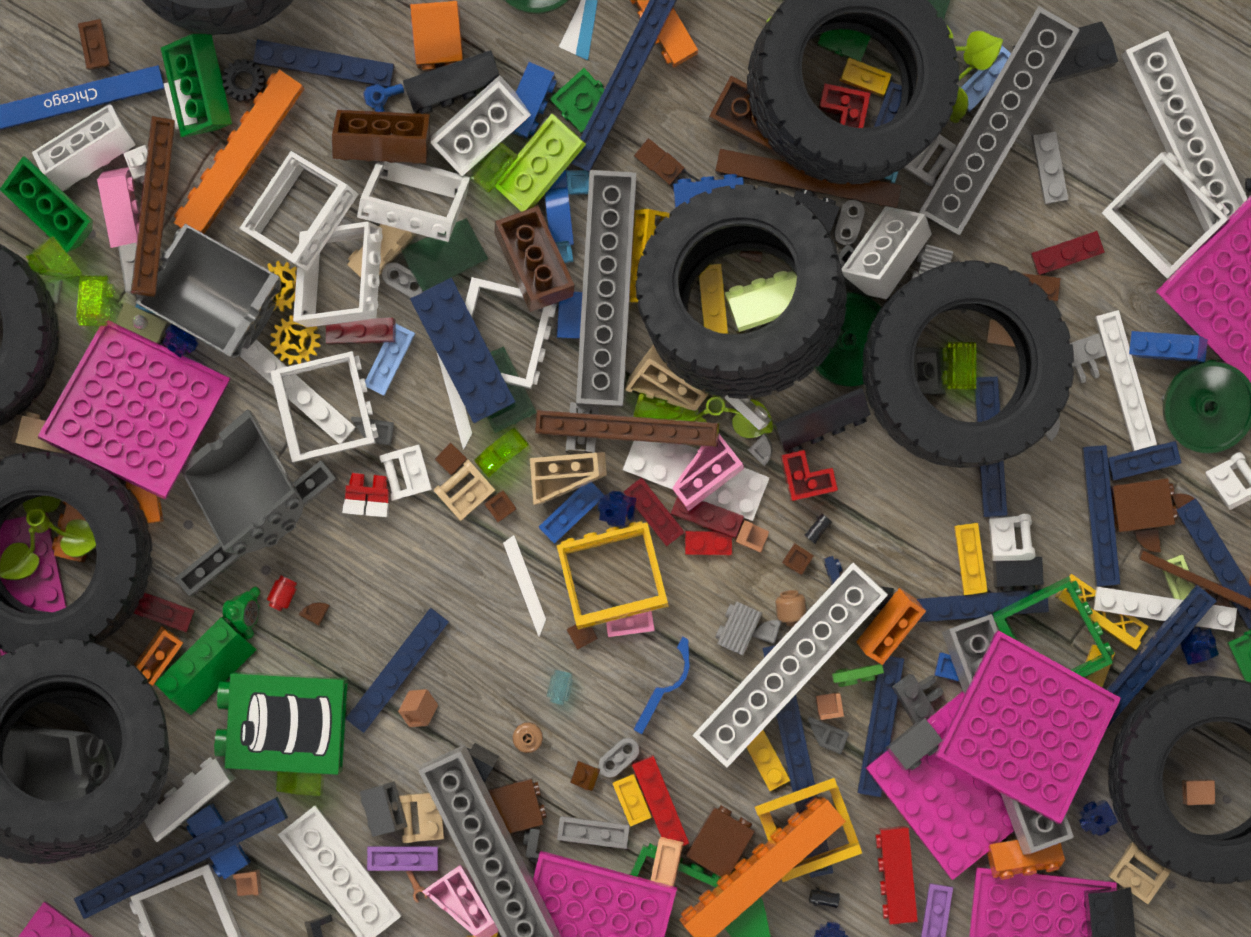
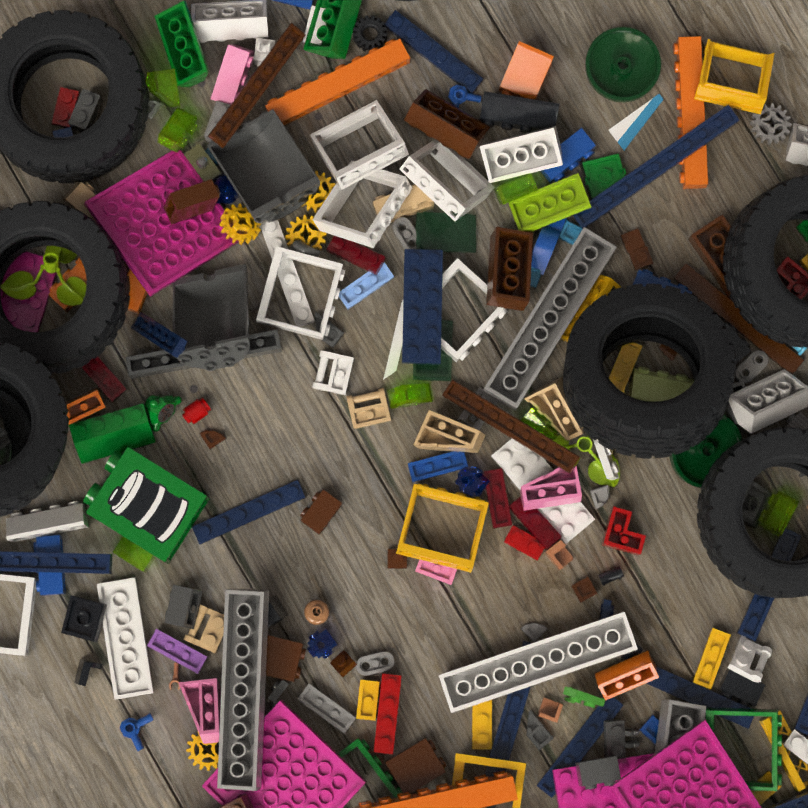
camera: 25 degrees right, 5 degrees down
(152, 372) = (191, 201): none -> reddish brown brick
(198, 537) = (159, 335): none -> dark blue plate
(219, 377) = (231, 222): none -> yellow gear
(248, 882) = (55, 607): nougat panel -> none
(284, 878) = (84, 618): none -> black plate
(299, 356) = (302, 247): none -> dark grey arm
(357, 494) = (290, 369): red hips -> none
(418, 708) = (248, 547): nougat panel -> none
(451, 459) = (370, 381): reddish brown tile -> none
(473, 629) = (320, 512): none -> reddish brown brick
(500, 506) = (388, 434): reddish brown plate -> none
(525, 583) = (375, 501): white sticker -> none
(551, 759) = (329, 643): none -> clear blue brick
(560, 687) = (360, 588): clear light blue brick -> none
(570, 317) = (512, 325): blue tile -> none
(659, 691) = (430, 631): blue piece -> none
(666, 861) = (369, 758): light nougat tile -> none
(738, 628) = (514, 616): light grey brick -> none
(790, 607) = (560, 621): medium nougat head -> none
(821, 420) = (656, 497): black slope -> none

